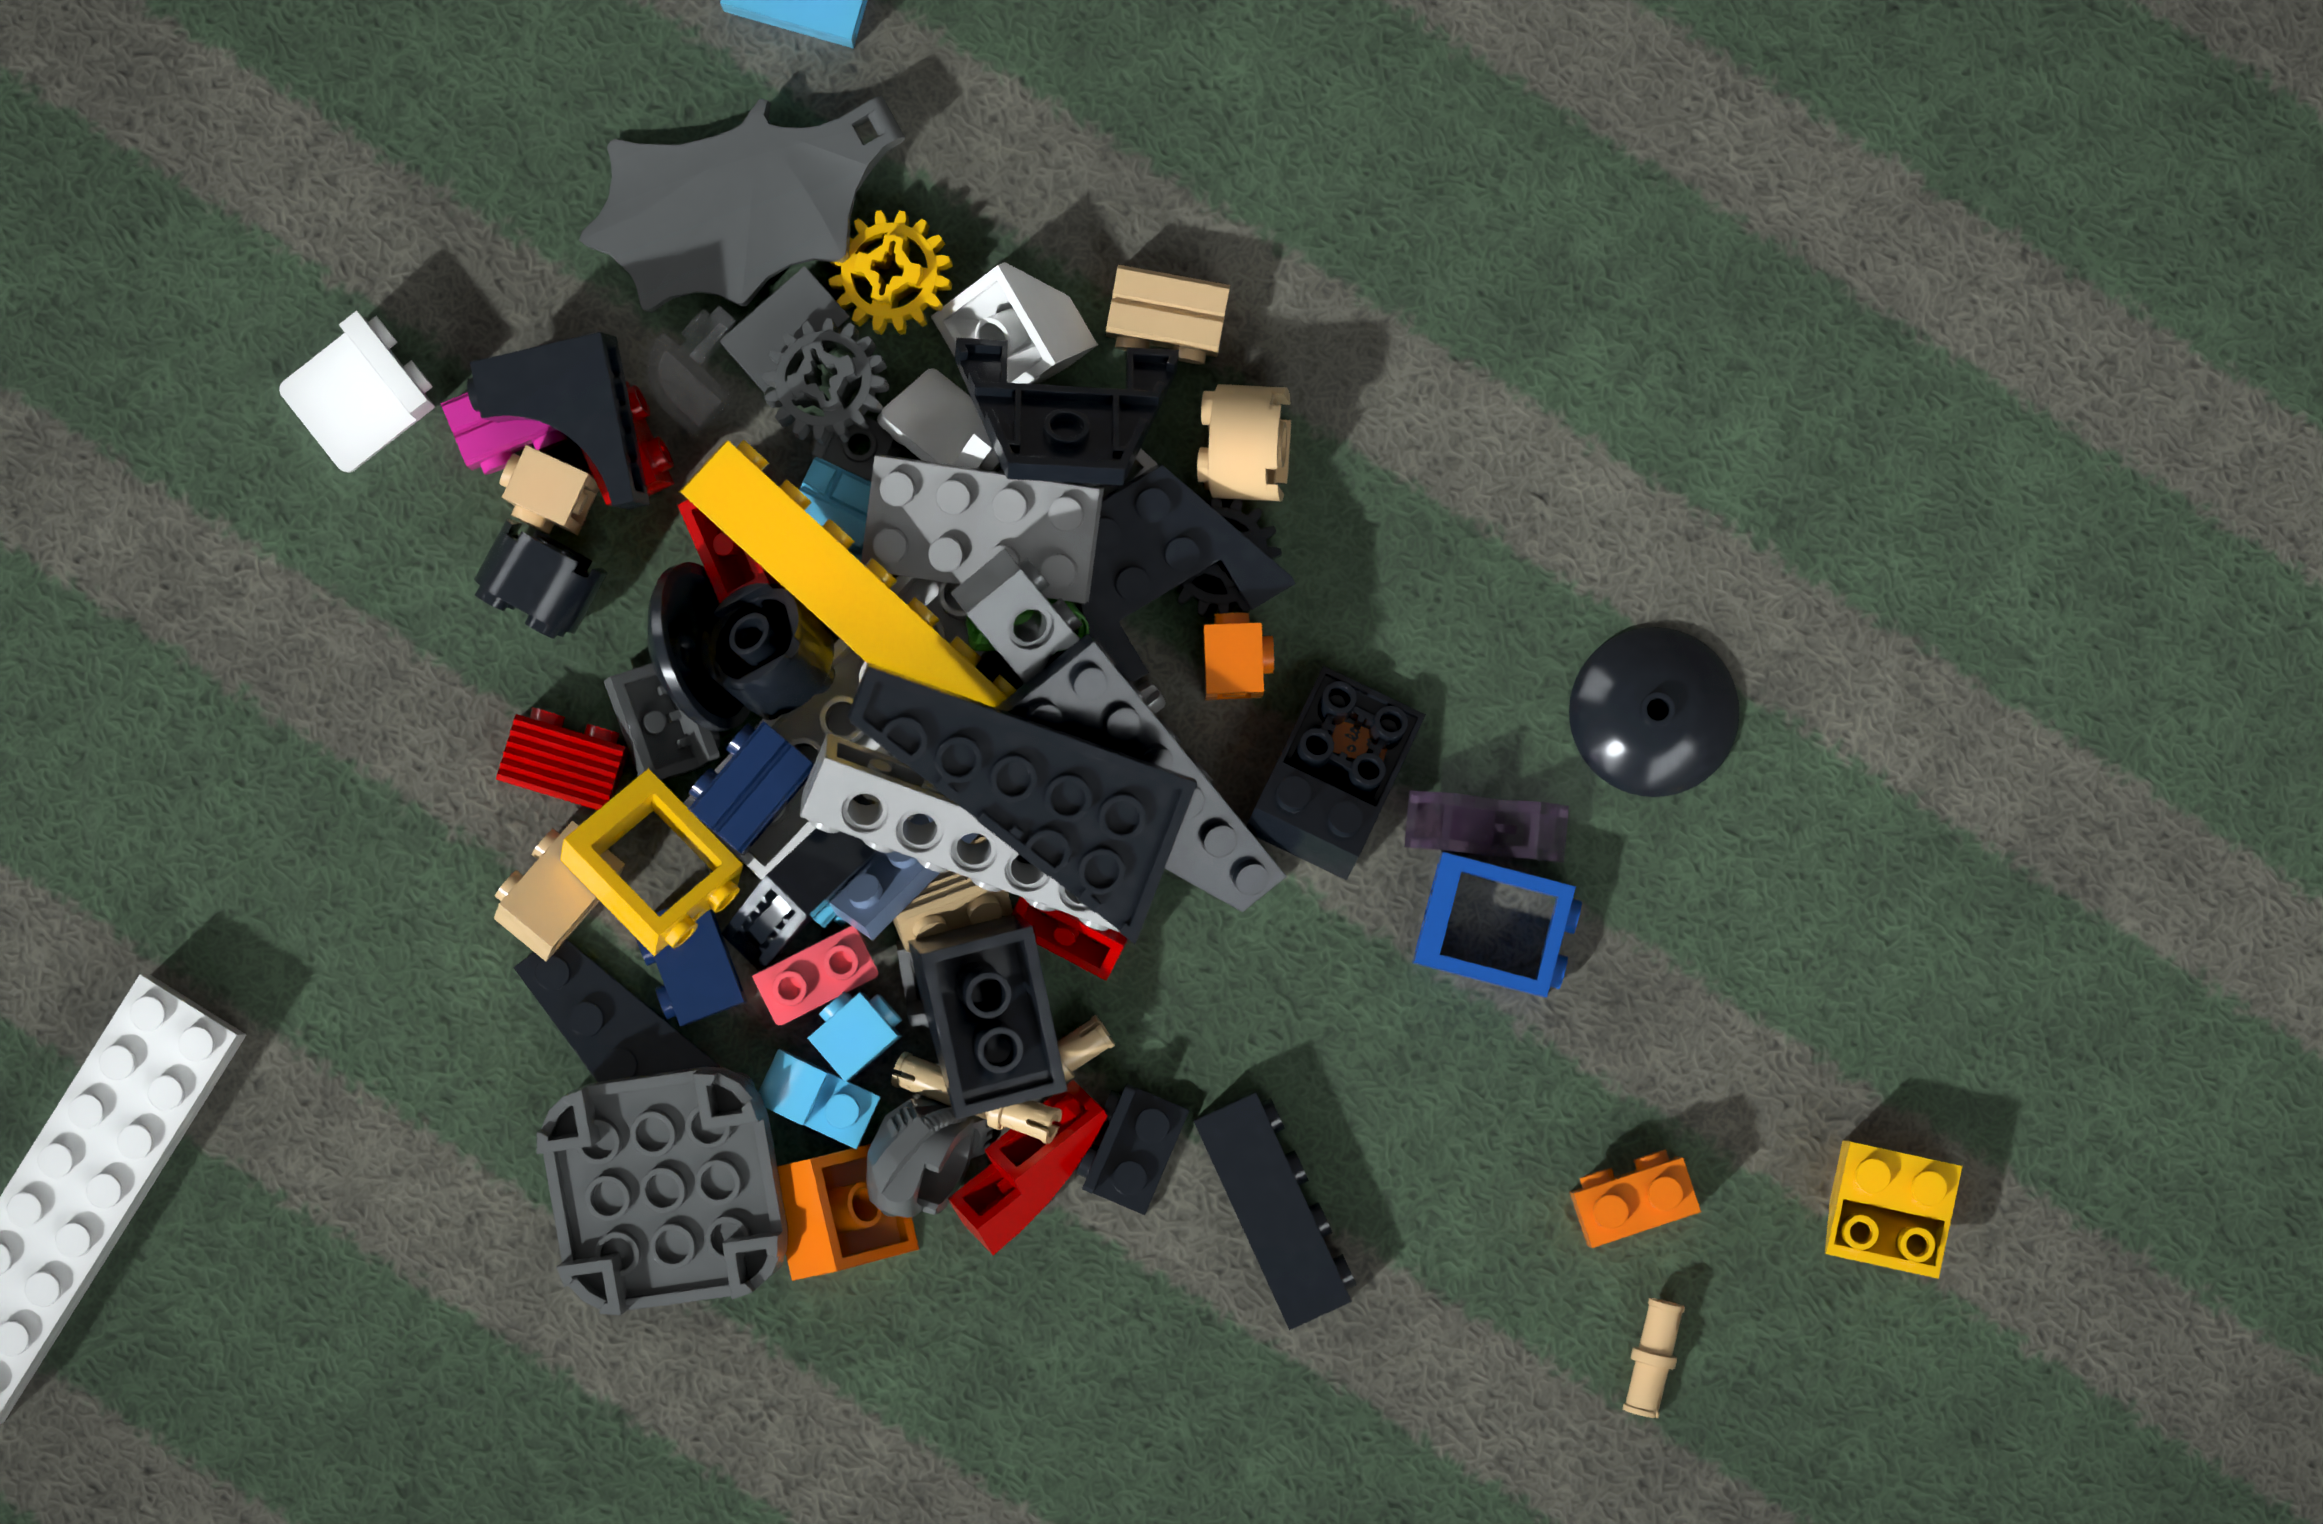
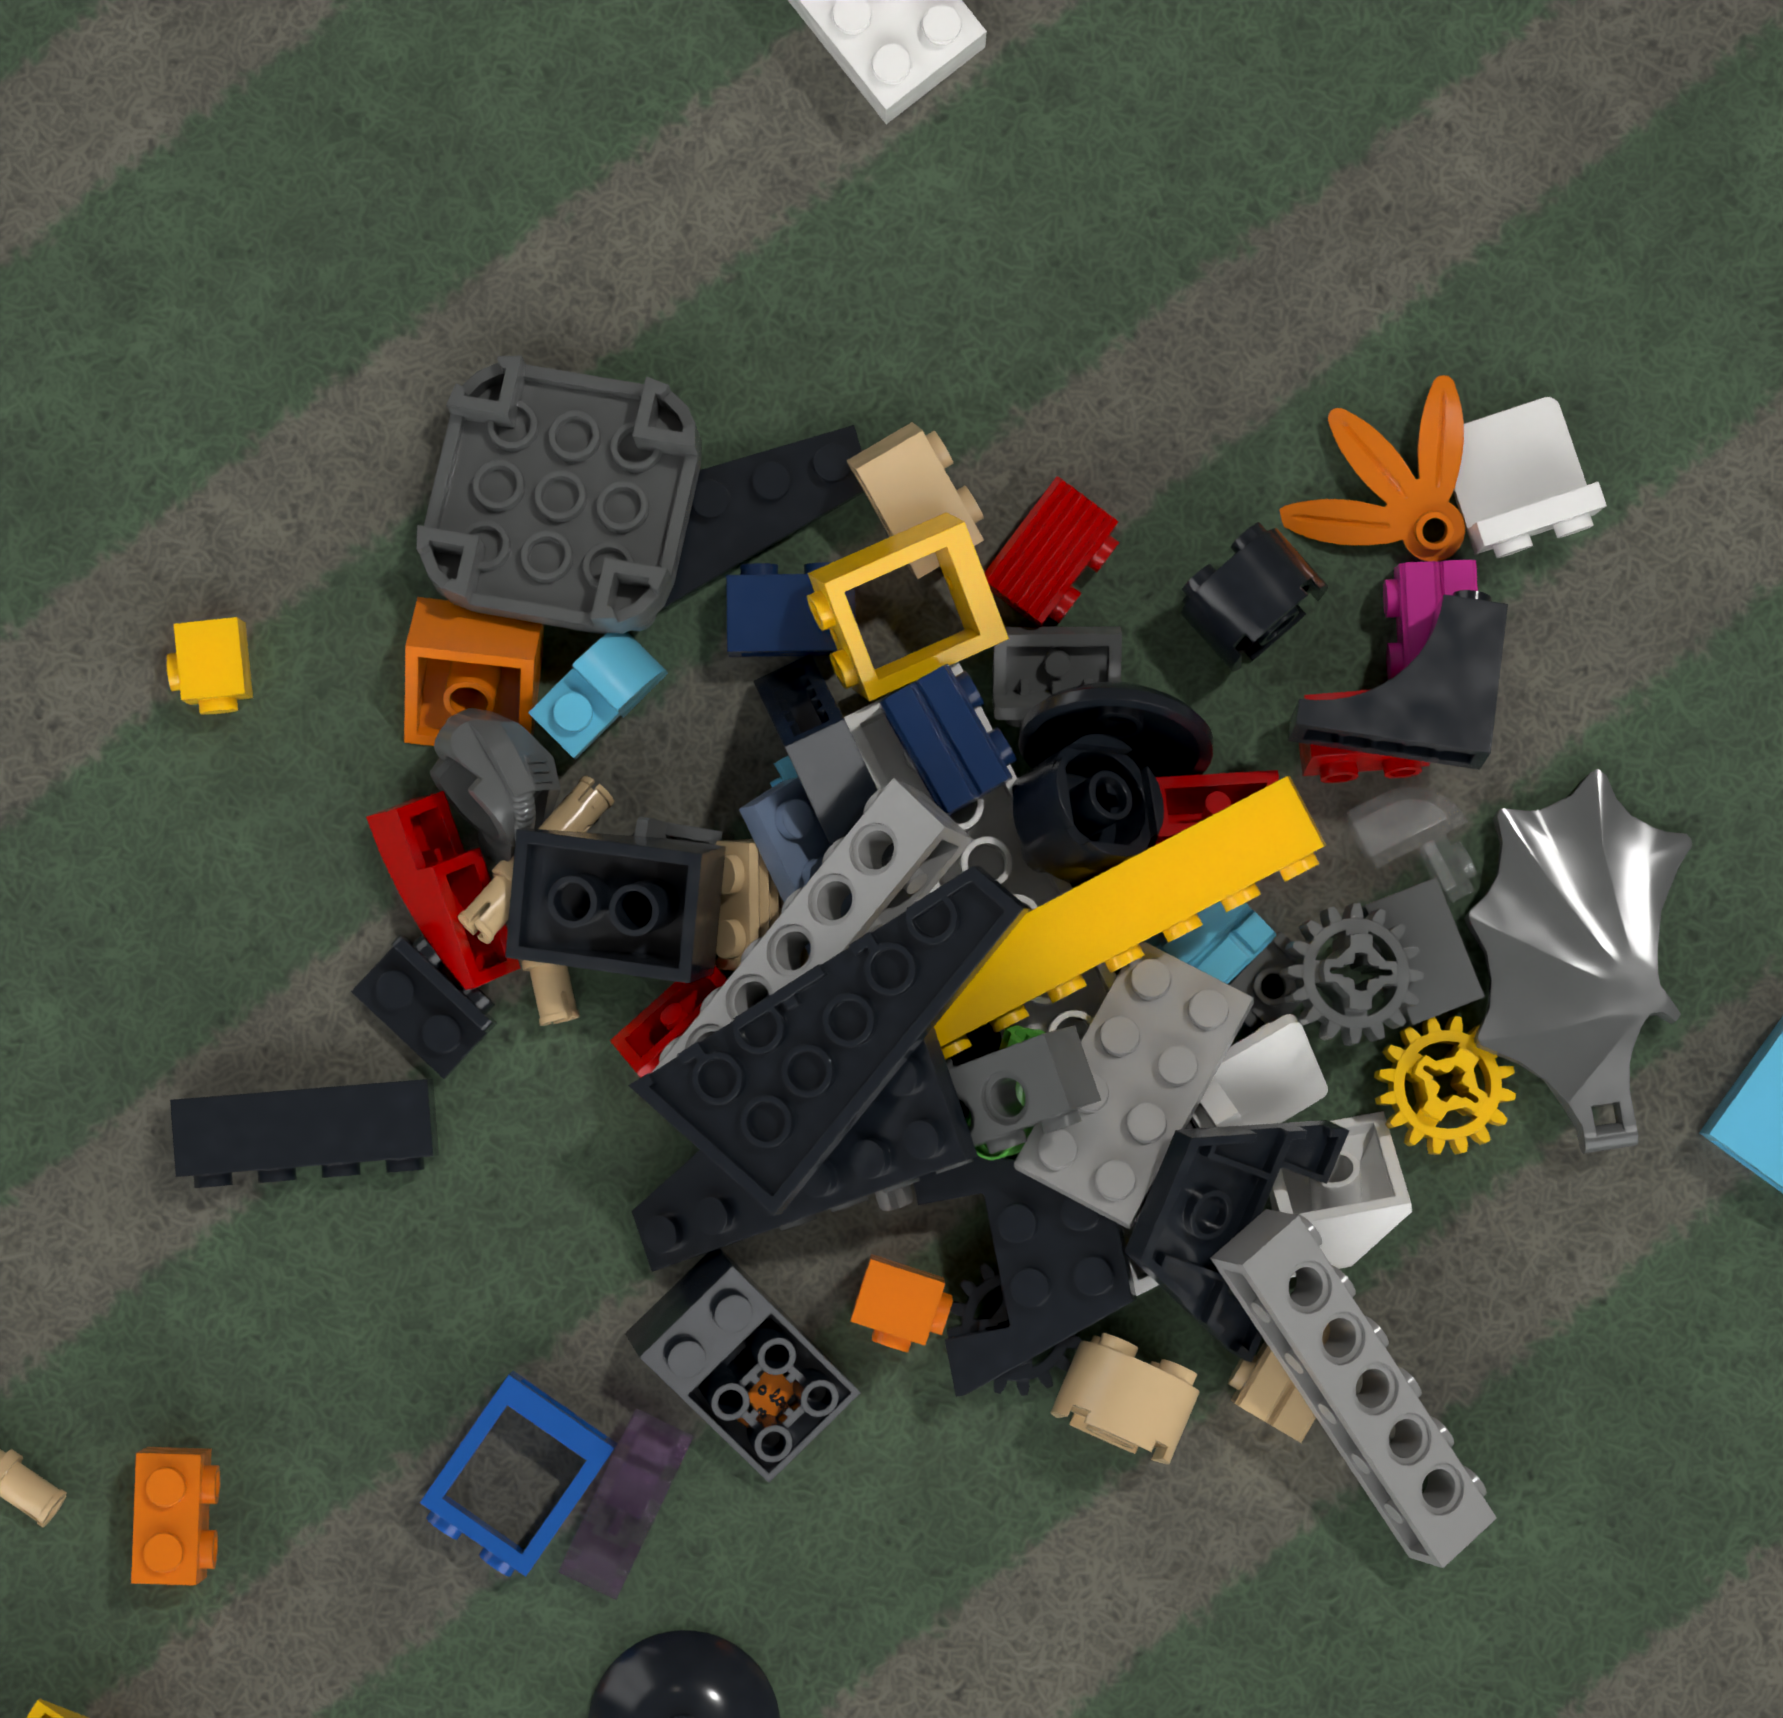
camera: 110 degrees right, 0 degrees up
(392, 507) = (1407, 499): none -> orange plant
(547, 491) = (1341, 637): tan brick -> none
(816, 975) = (726, 736): coral bracket -> none
(855, 1032) = (650, 756): medium azure brick -> none
(912, 1435) = (211, 664): none -> yellow brick
(1100, 369) = (1258, 1271): none -> light grey brick

